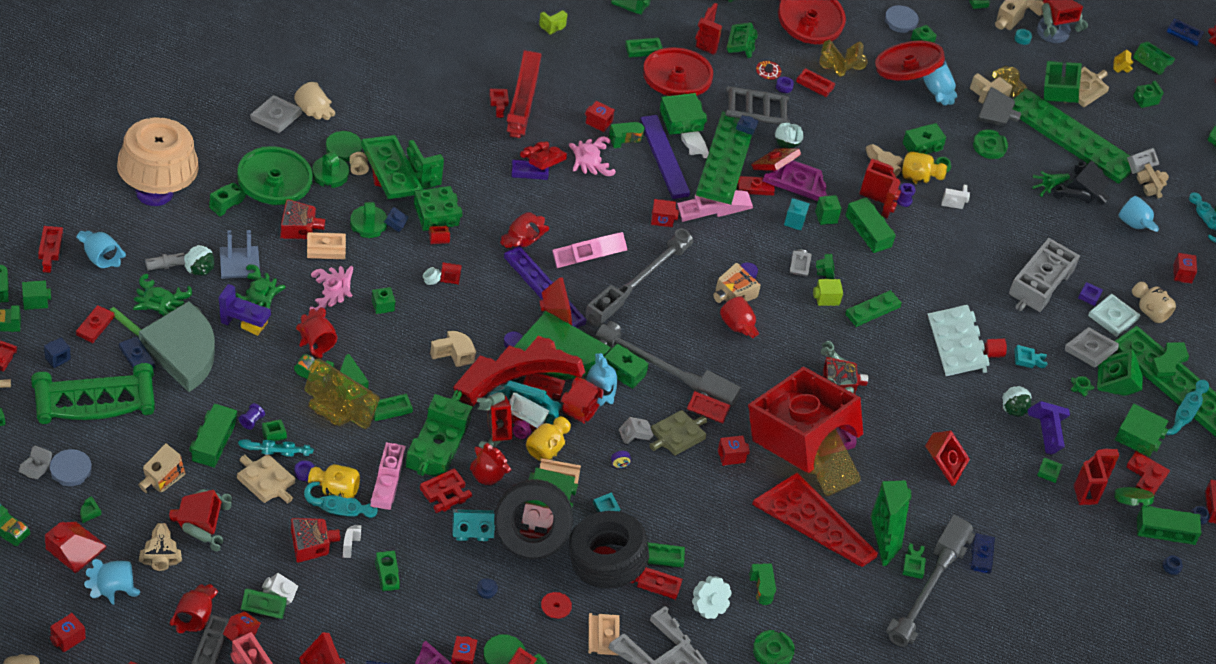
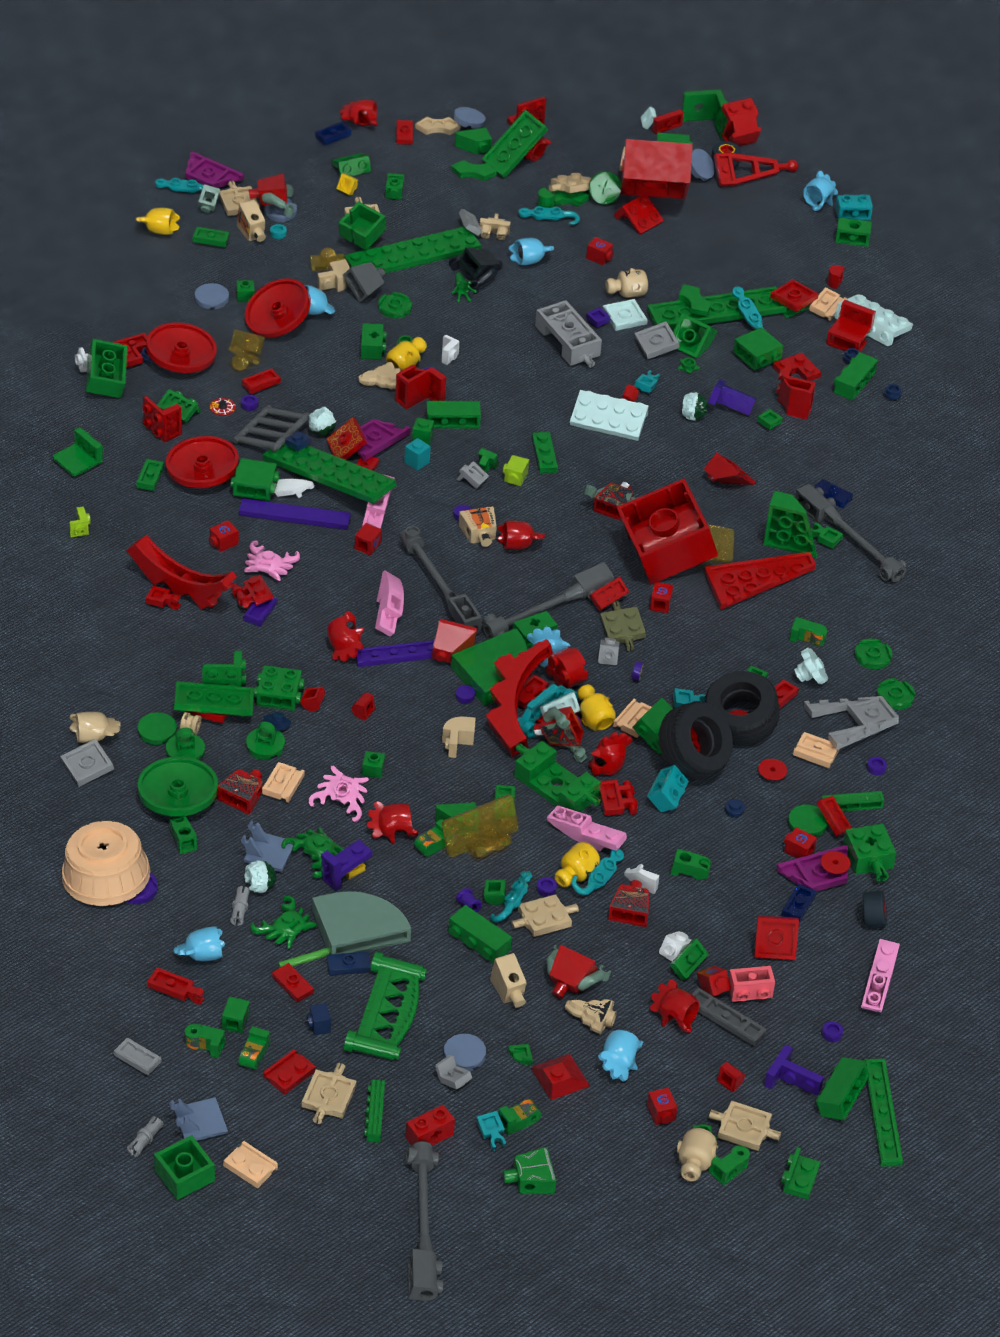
camera: 60 degrees left, 5 degrees down
(431, 276) = (357, 720): light aqua plate -> none
(626, 133) = (255, 527): green leg -> none
(1133, 496) = (824, 380): green tile -> none

